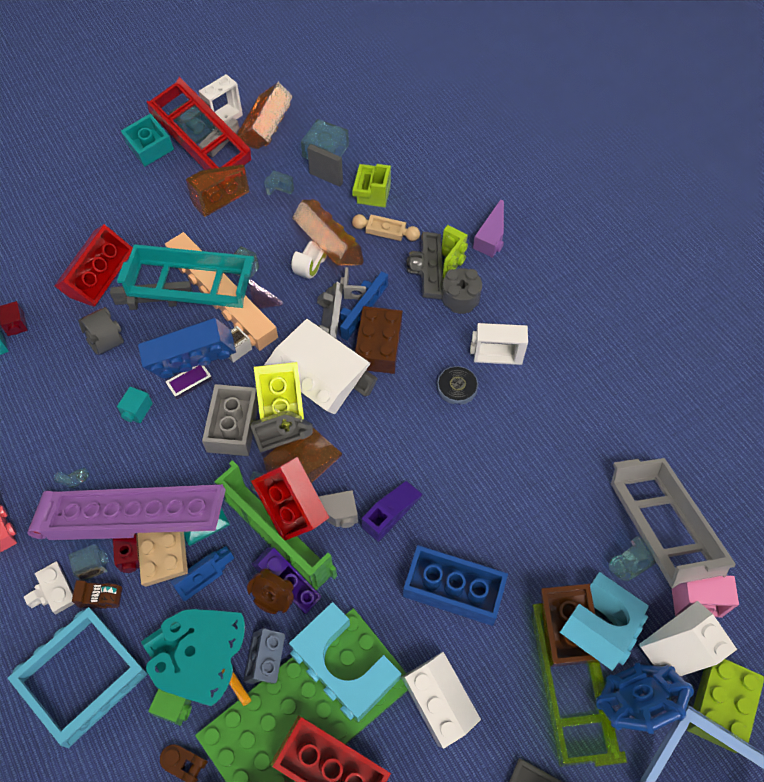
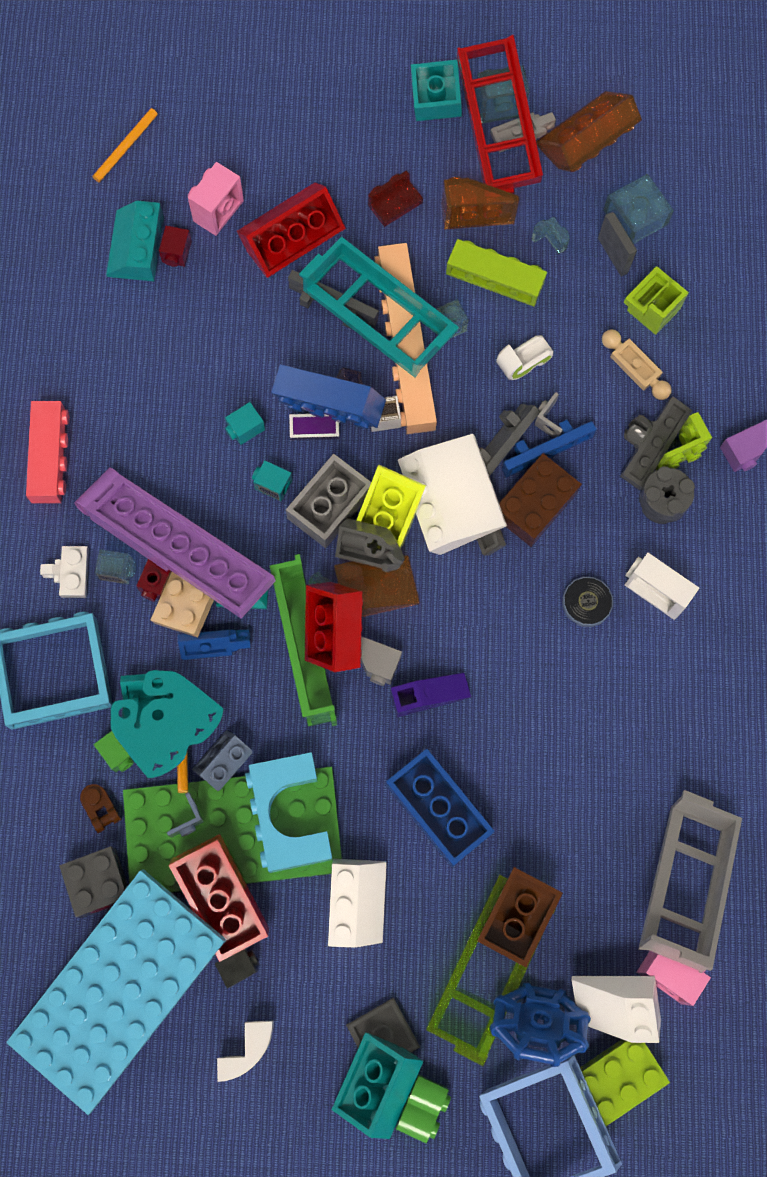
camera: 30 degrees right, 15 degrees up
(26, 272) = (215, 198): none -> bright pink brick
(73, 479) = (145, 469): clear light blue arm -> none
(96, 595) = (106, 604): reddish brown leg -> none
(101, 331) = (255, 318): dark grey brick -> none
(157, 214) = (394, 198): none -> clear red bracket
(179, 431) = (272, 480): none -> teal brick
(216, 89) = (557, 96): white window -> none
(256, 222) = (496, 272): none -> lime brick
(261, 297) = (446, 375): clear purple slope -> none
(265, 583) = (263, 704): reddish brown plate -> none
(269, 727) = (188, 827): none -> sand blue bracket
(304, 594) = (286, 699): dark purple slope -> none
(328, 233) = (560, 339): clear orange slope -> none
(603, 640) = (534, 953): medium azure arch -> none
(632, 561) = (628, 897): clear light blue leg -> none

